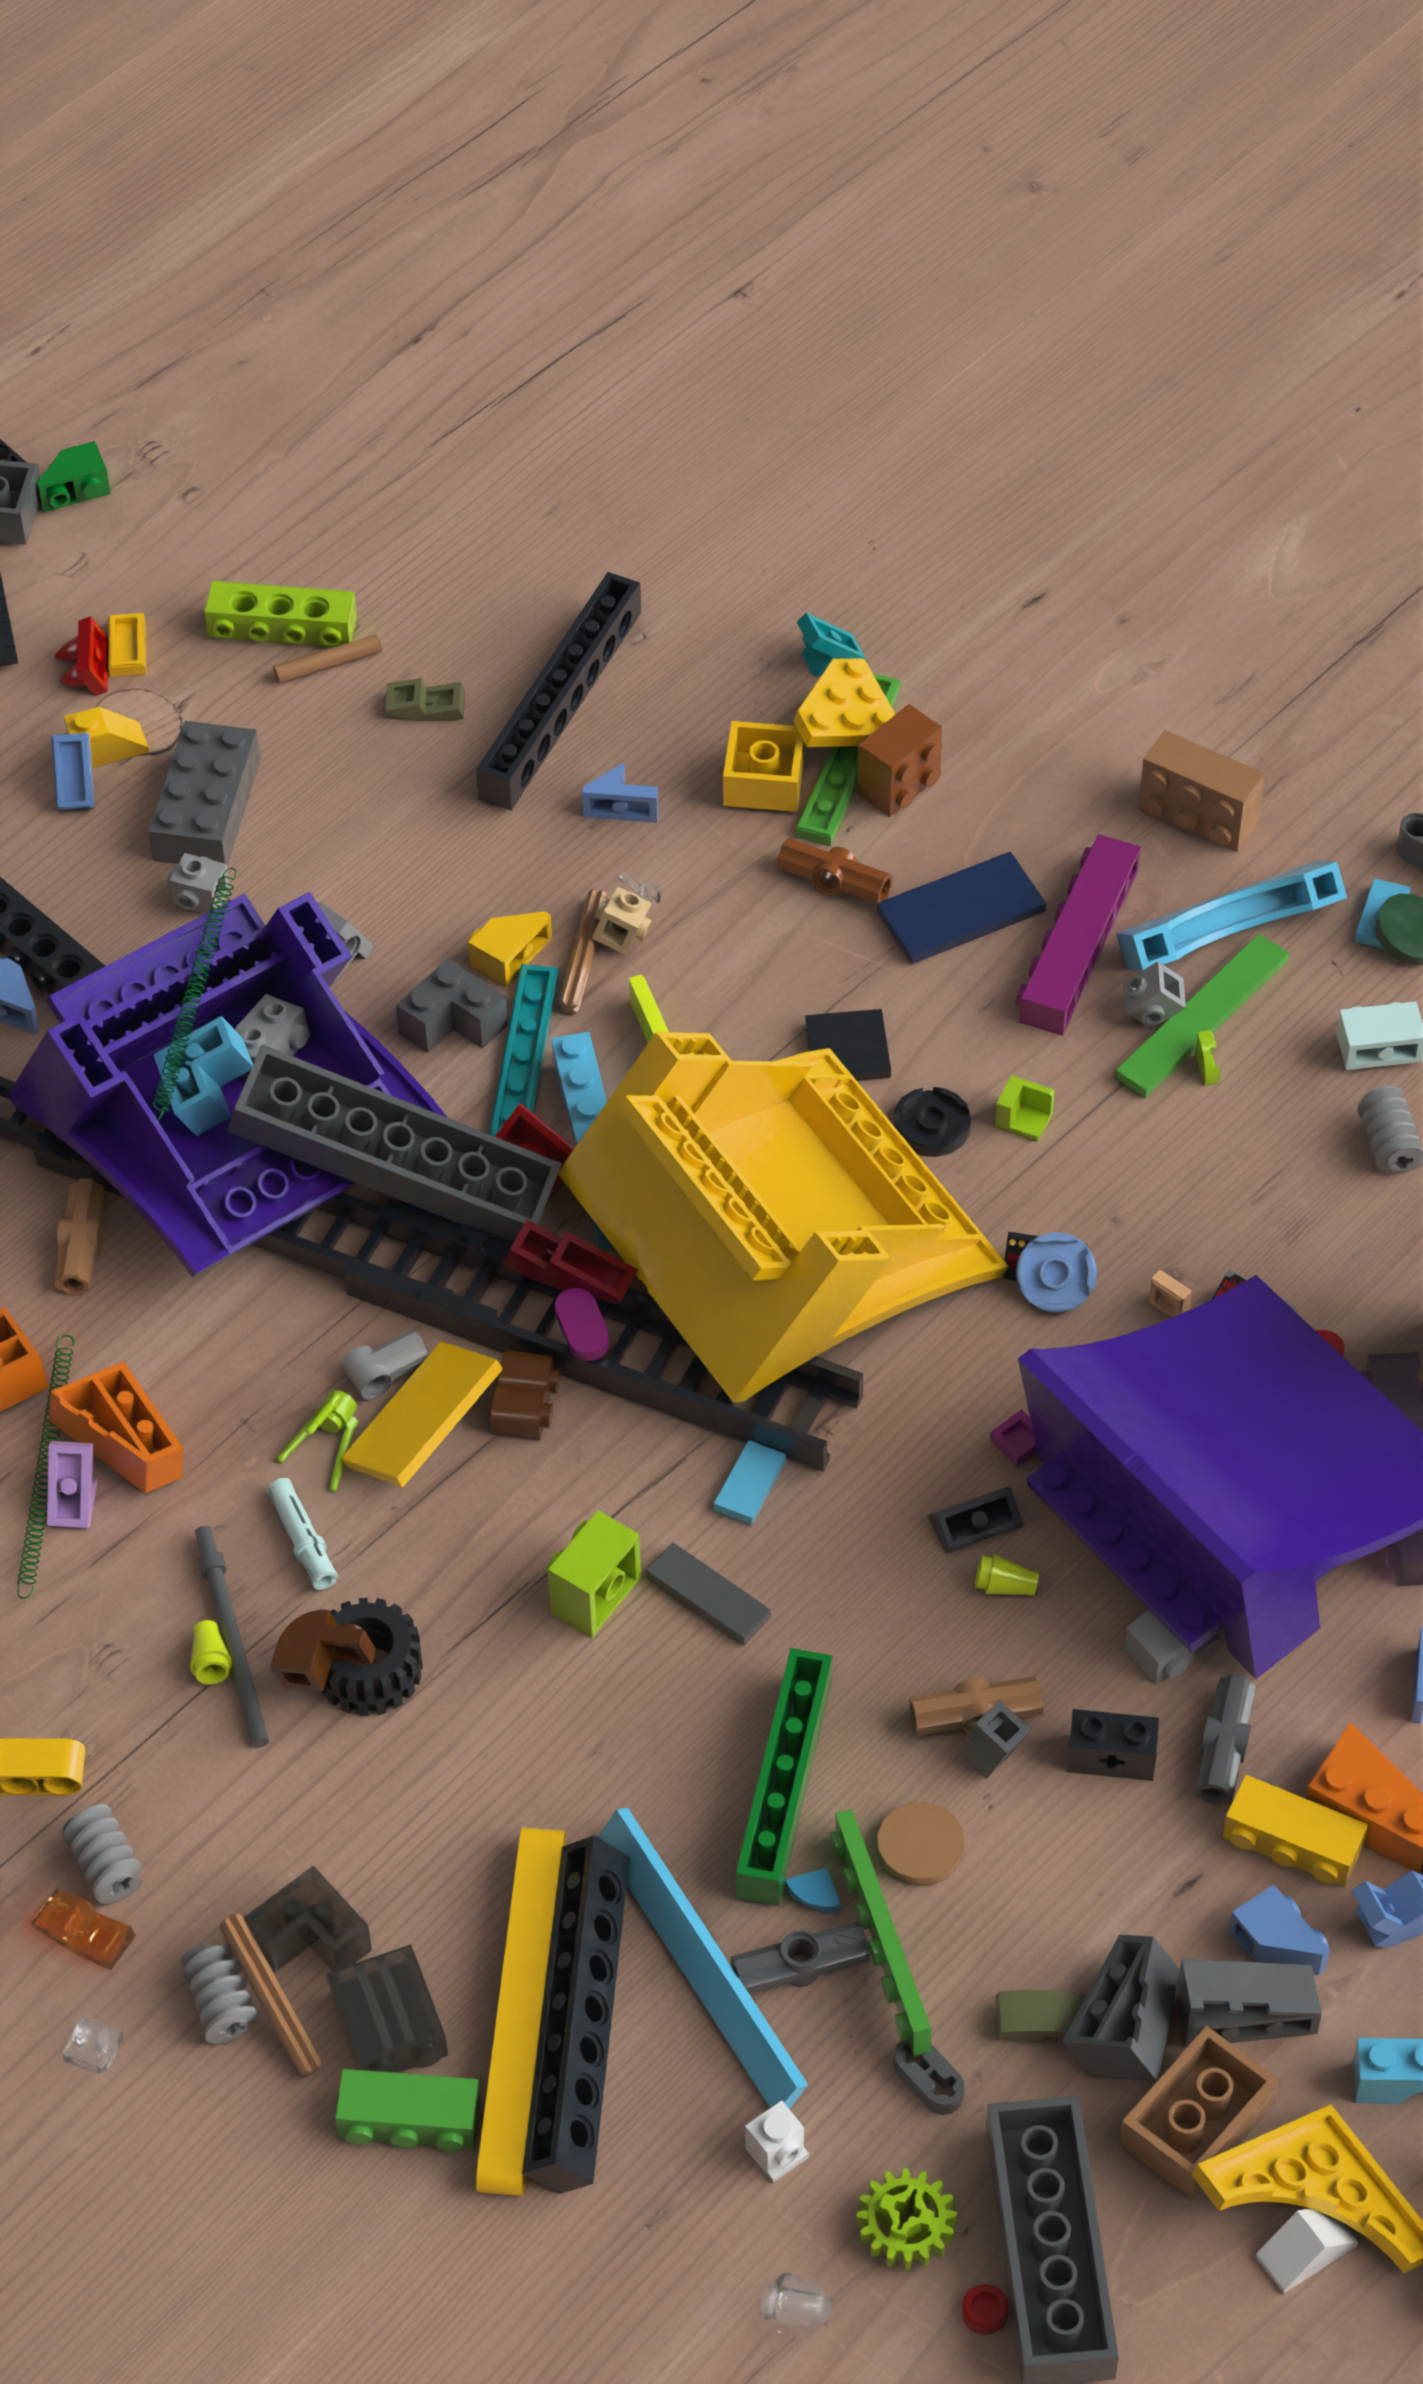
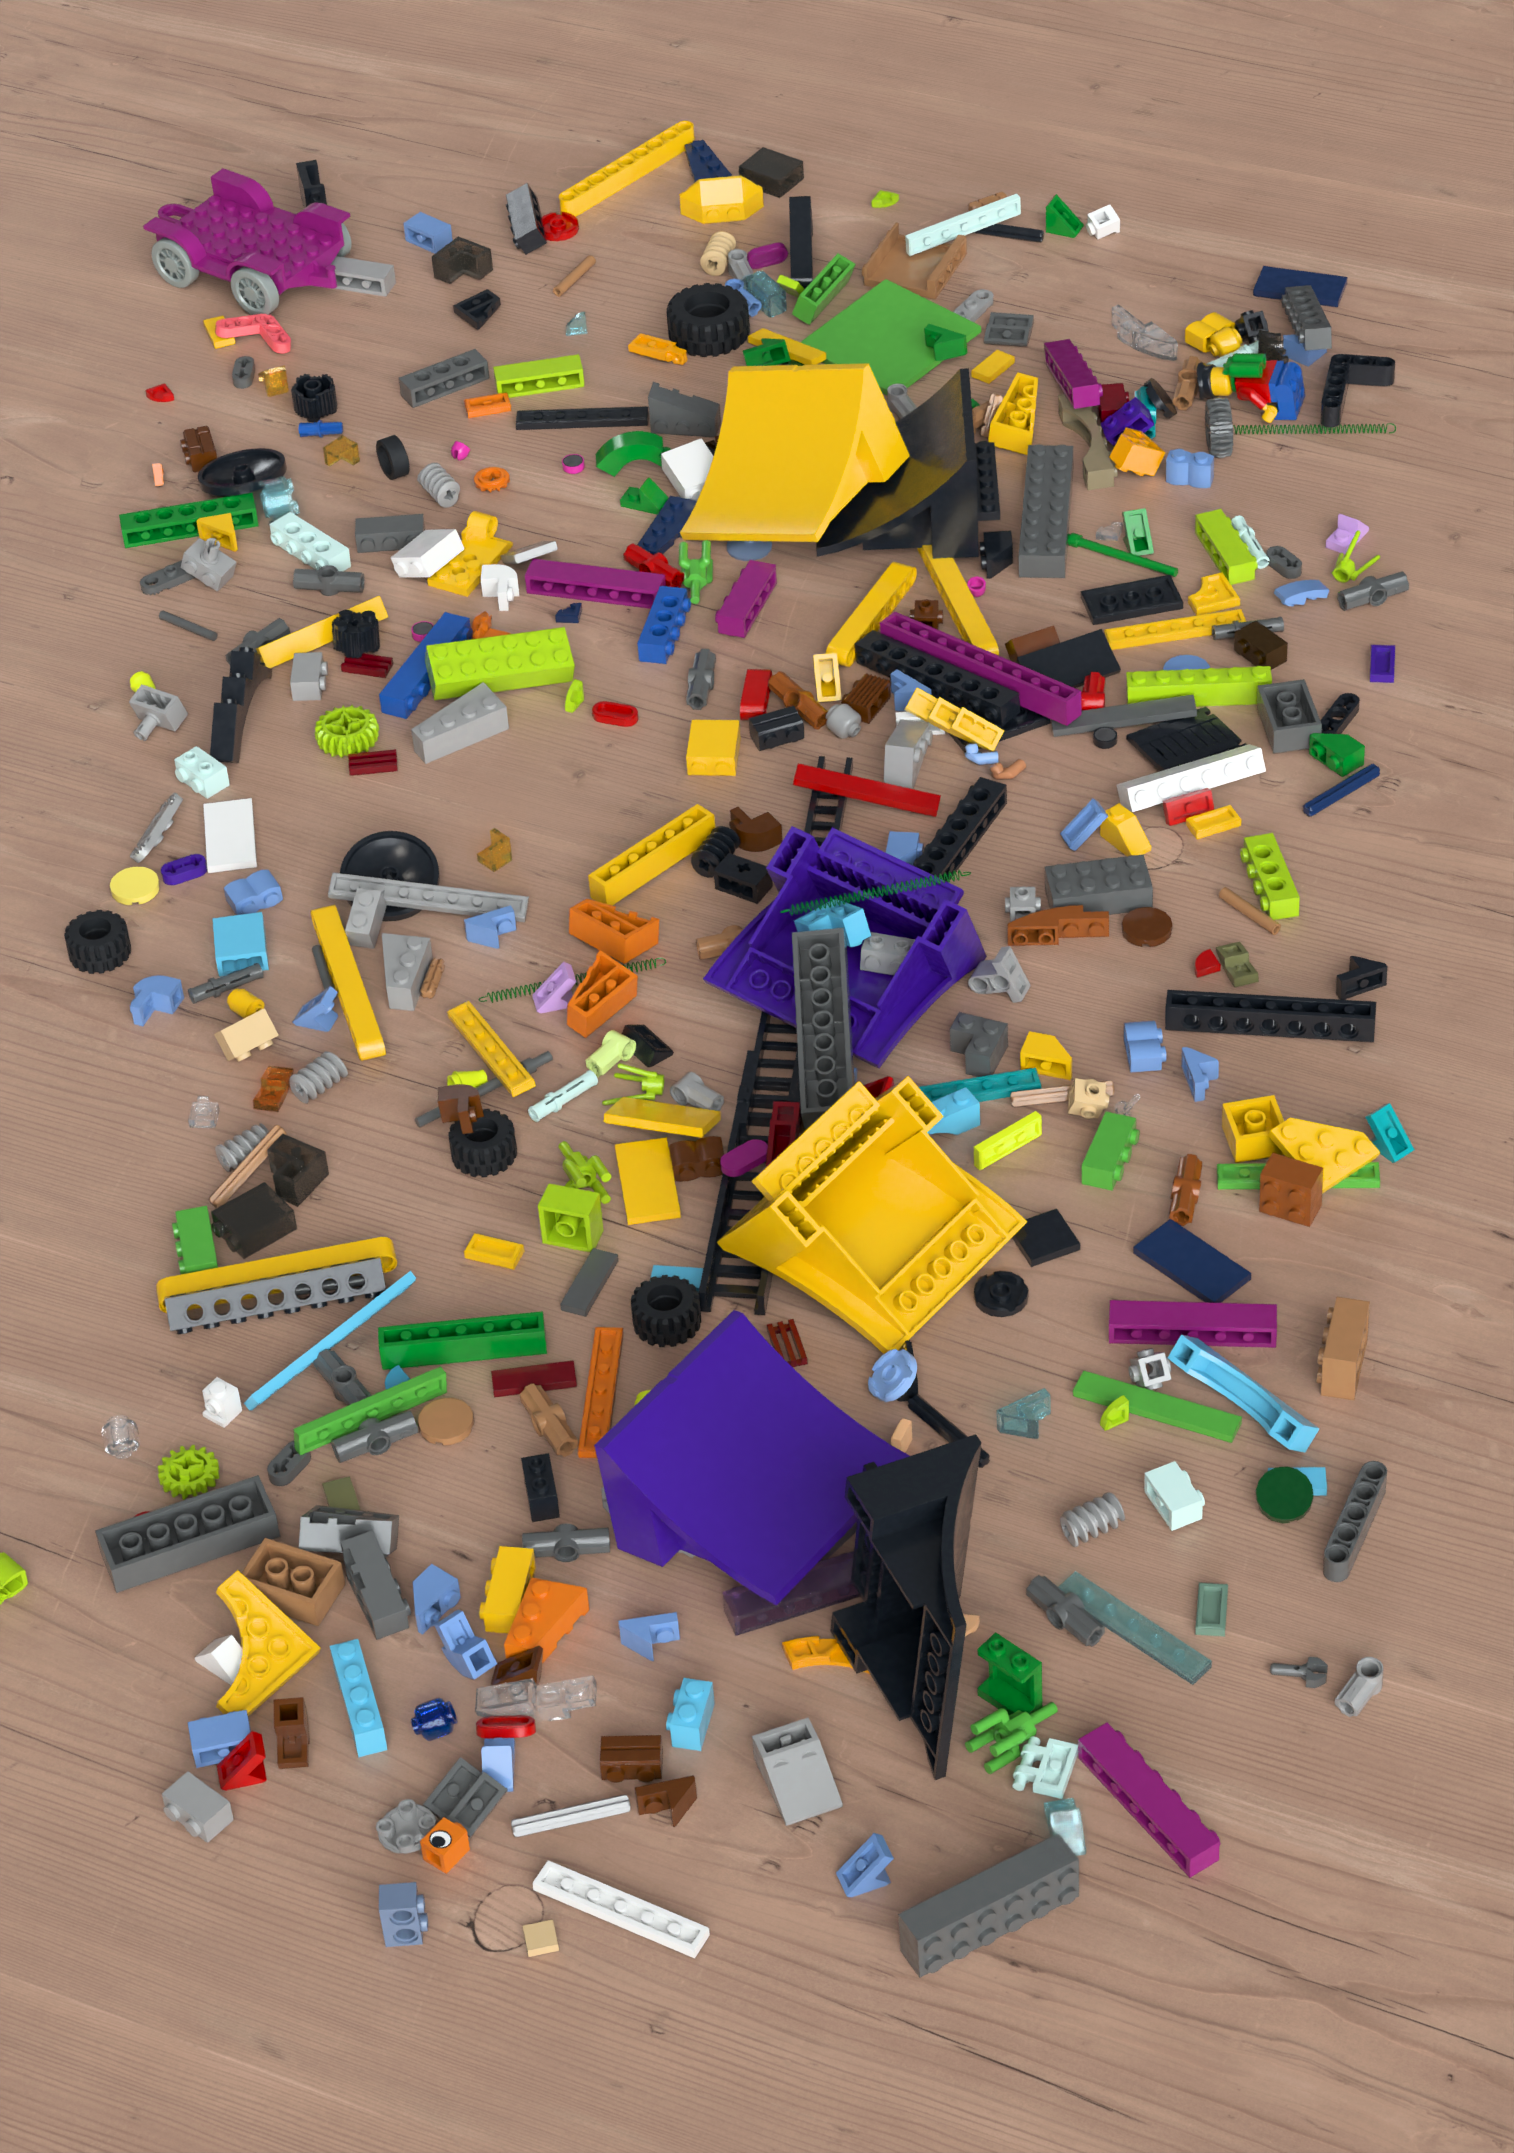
camera: 75 degrees right, 10 degrees down
(41, 635) = (1190, 777): none -> white brick
(144, 499) = (1341, 790): none -> dark blue axle
(155, 1601) = (491, 1049): none -> yellow tile
(236, 1406) = (649, 1047): none -> black slope
(238, 1443) = (613, 1049): none -> yellowish green piece
(255, 850) = (1060, 922): none -> dark orange slope
(299, 771) = (1147, 926): none -> reddish brown tile
(406, 731) = (1206, 964): none -> red tile
(488, 1544) = (583, 1171): none -> lime plant
(519, 582) = (1362, 977): none -> black slope
(529, 1471) = (647, 1181): none -> yellow tile
(541, 838) = (1143, 1046): none -> medium blue brick
(588, 1702) = (494, 1251): none -> yellow tile
(725, 929) = (1110, 1151): none -> bright green brick
(820, 1532) = (666, 1311): none -> black tyre
(877, 1710) = (549, 1376): none -> dark red tile
(925, 1941) = (374, 1436): none -> dark grey piece
(931, 1378) = (783, 1329): none -> dark red tile
(933, 1631) = (600, 1389): none -> orange tile
(994, 1739) = (520, 1427): dark grey brick -> none
(1024, 1108) = (1027, 1331): lime panel -> none
(1167, 1244) = (941, 1424): none -> black axle
(1178, 1155) = (1023, 1415): none -> clear light blue slope

